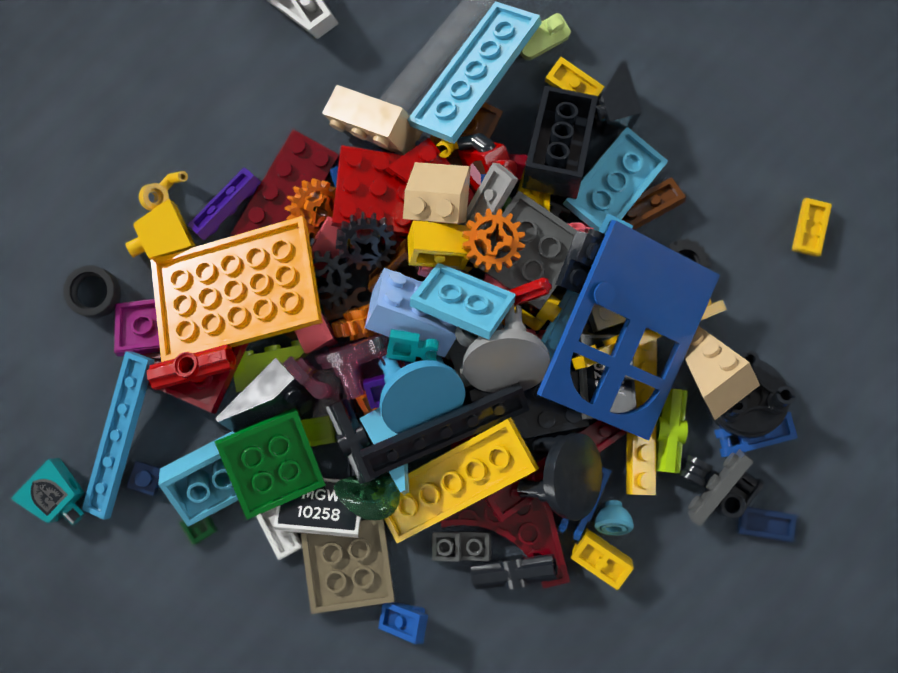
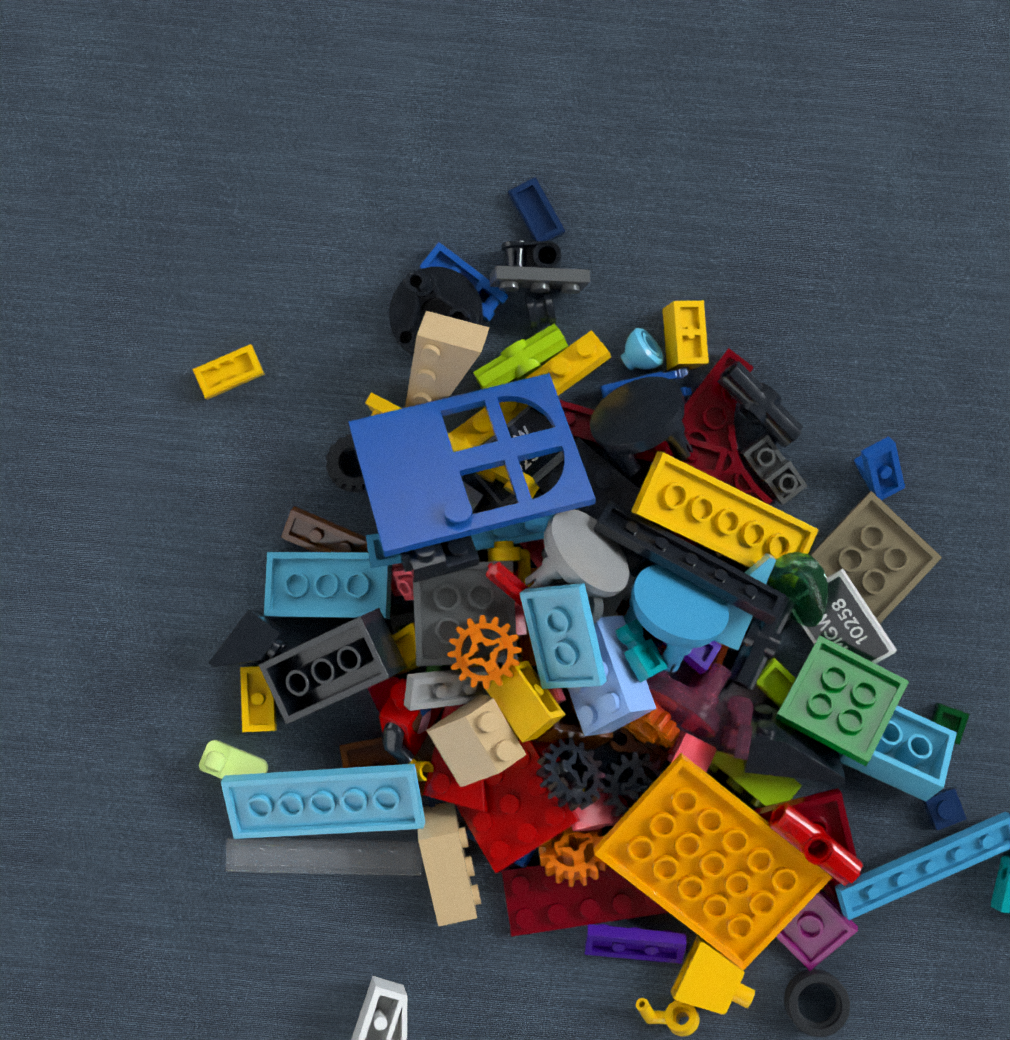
camera: 130 degrees left, 0 degrees up
(282, 542) = (901, 635): white tile -> none

